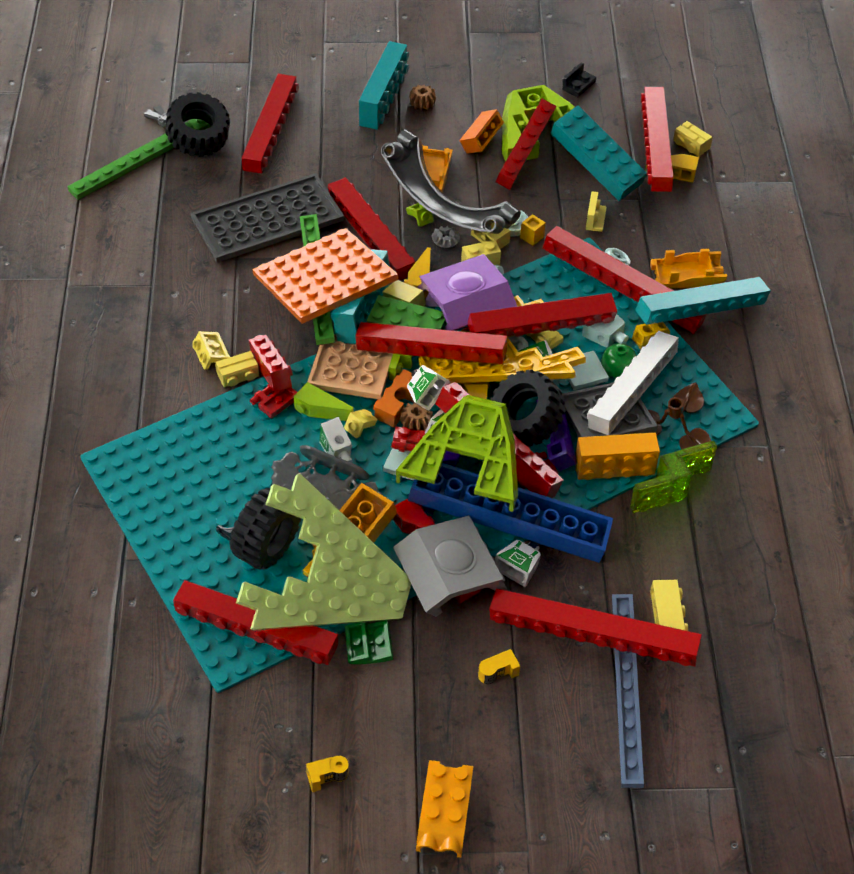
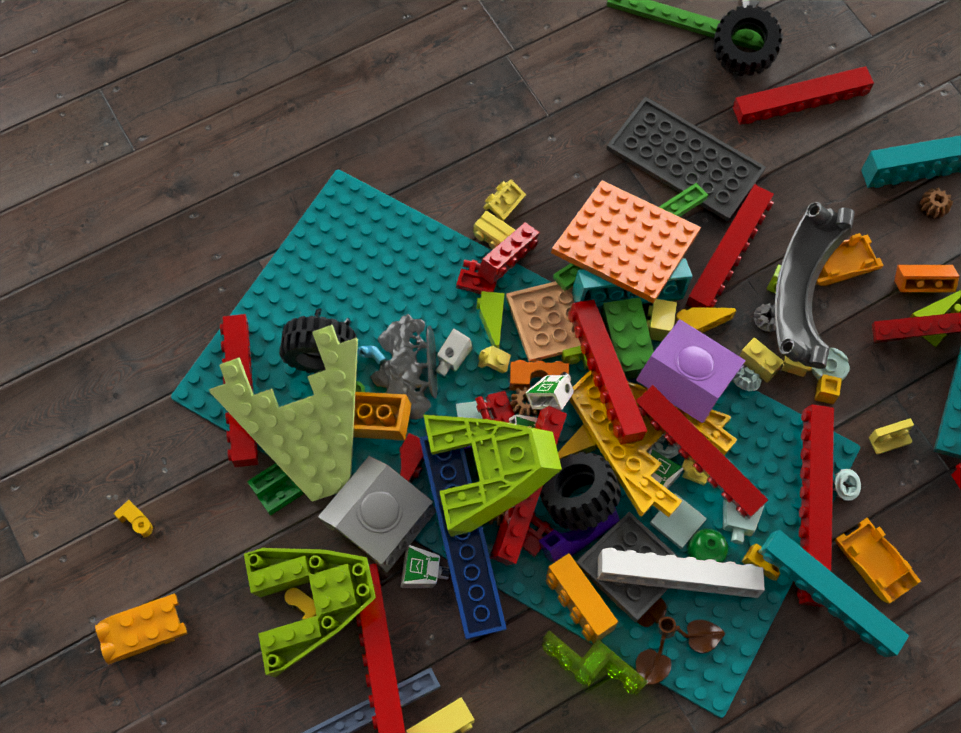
camera: 60 degrees right, 15 degrees up
(508, 617) = (339, 589): none -> lime piece

